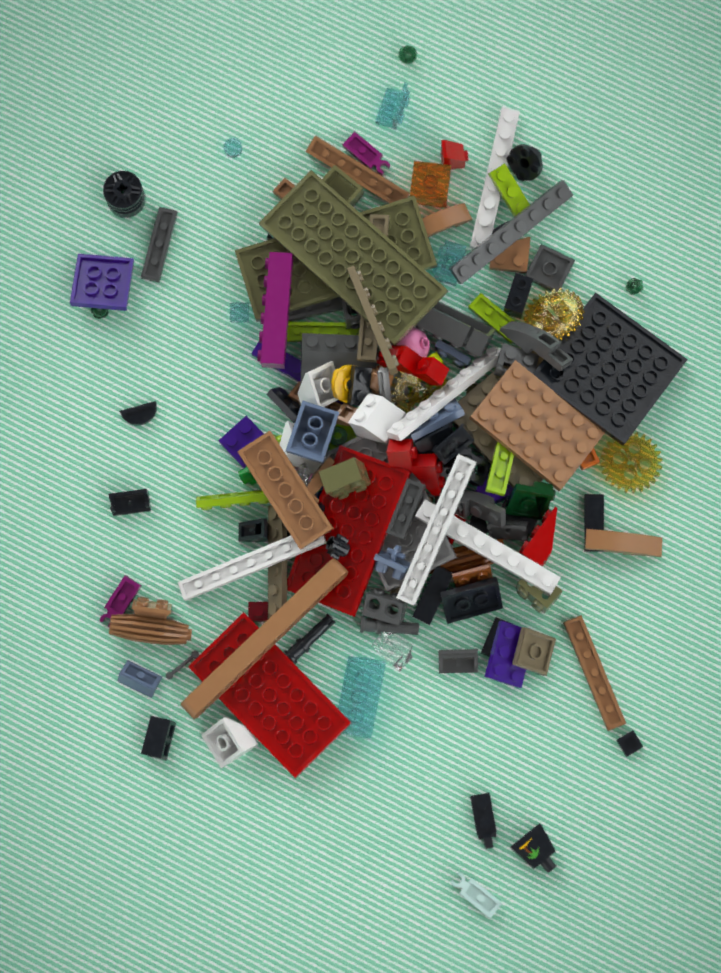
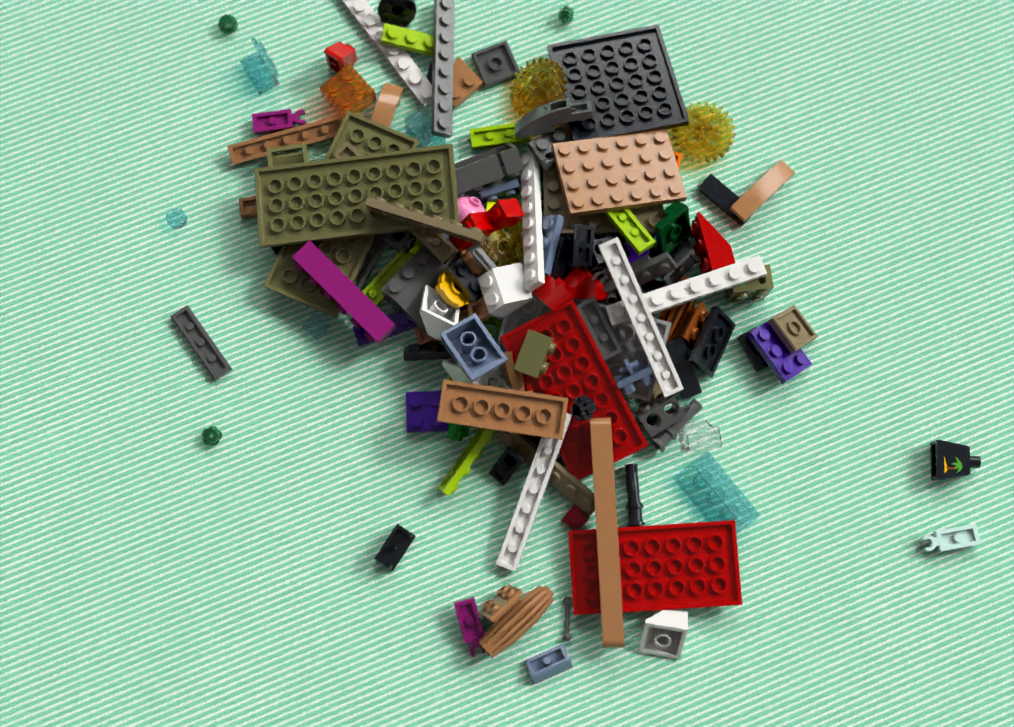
camera: 55 degrees left, 0 degrees up
(102, 282) = (190, 414): dark purple plate -> none
(125, 204) = (142, 341): black wheel -> none
(140, 414) = (328, 477): black tile -> none
(158, 738) = (613, 690): black hinge -> none
(458, 661) = (750, 394): dark grey hinge -> none
(484, 818) = (893, 481): black hinge -> none
(518, 296) = (497, 103): black brick -> none
(594, 673) = (845, 299): medium nougat tile -> none
(629, 743) = (923, 319): black tile -> none

